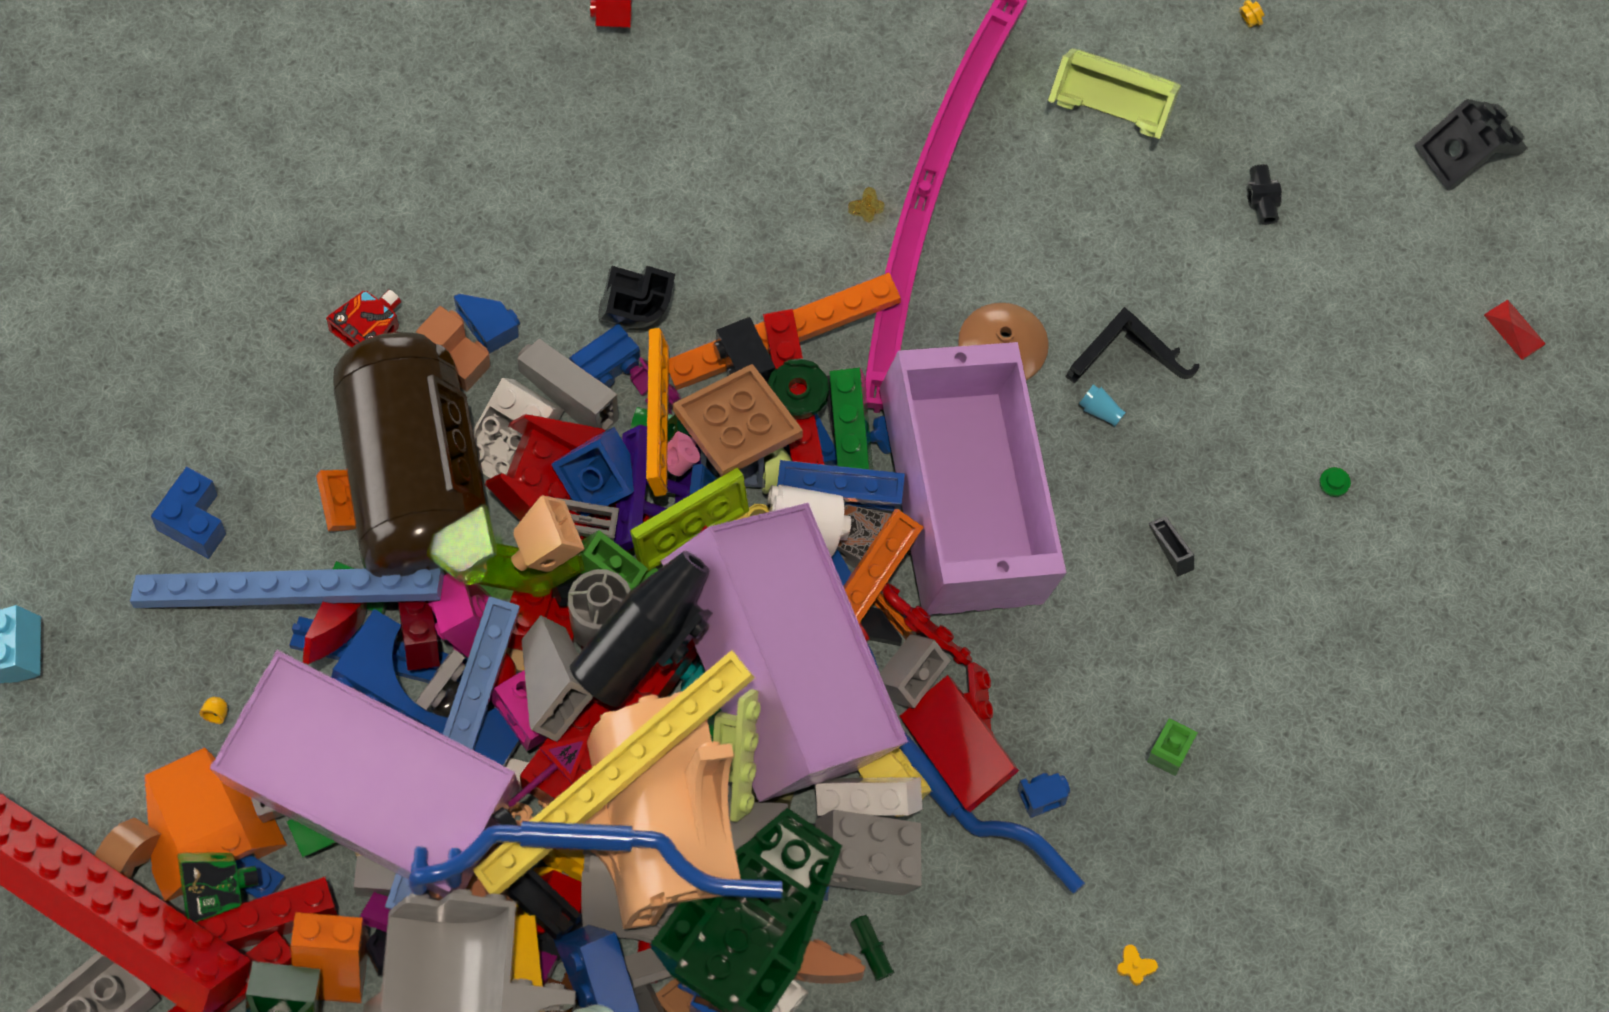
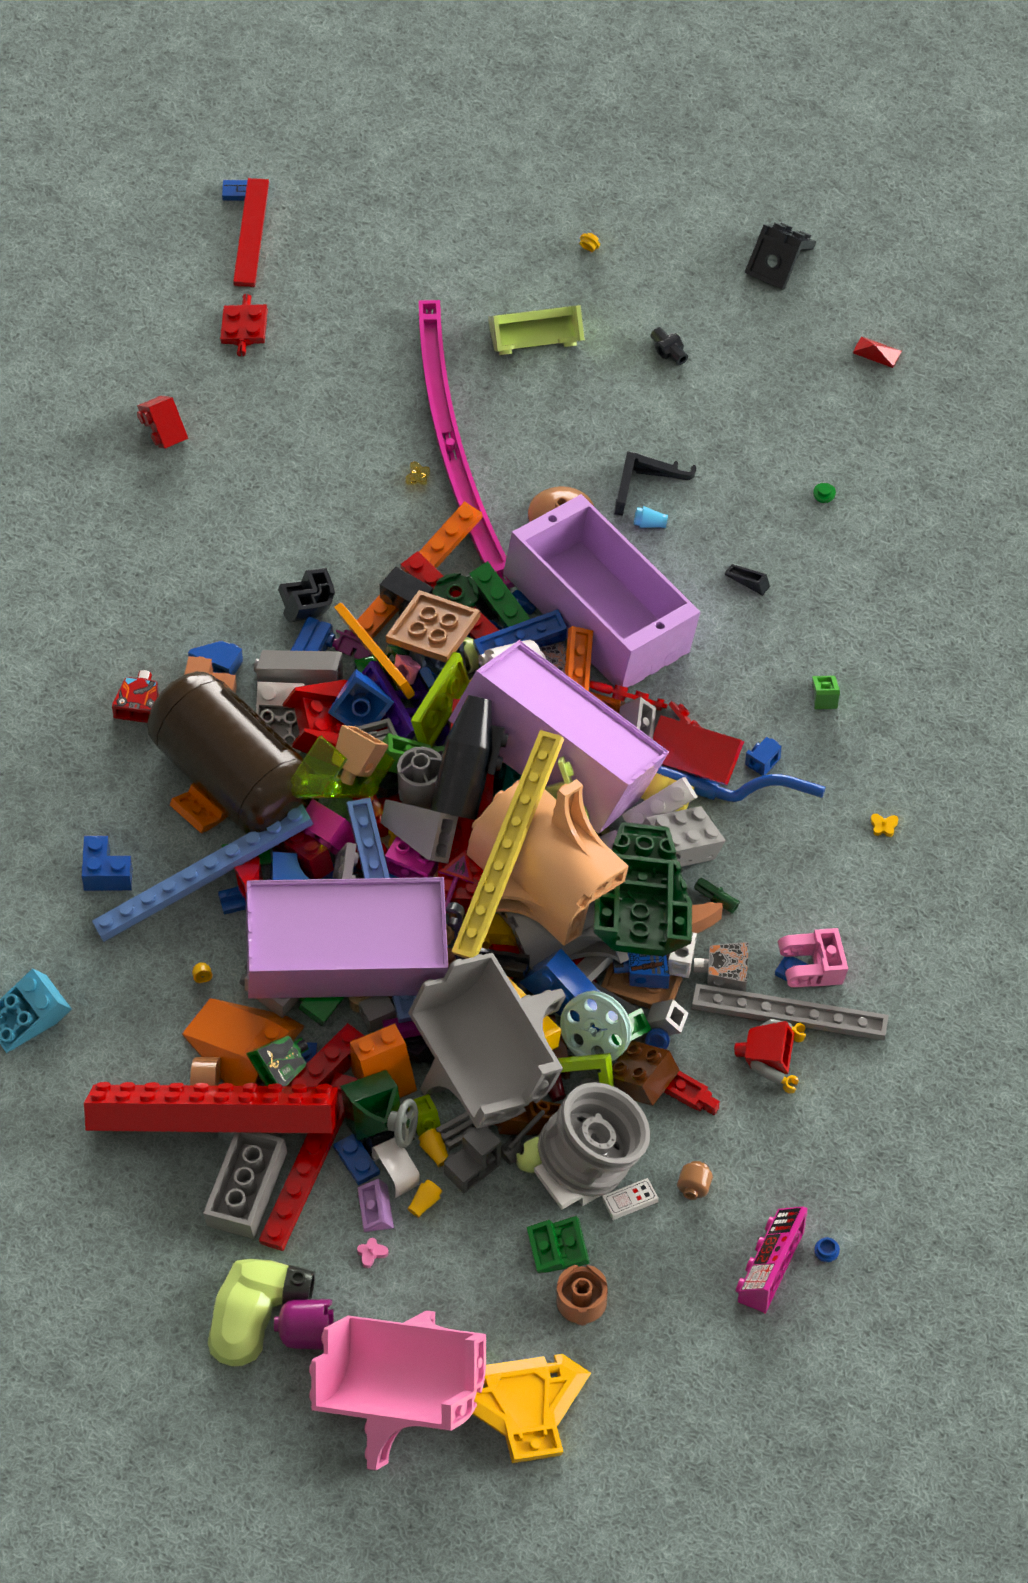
camera: 25 degrees left, 10 degrees down
(582, 838) = (511, 888): blue piece -> none

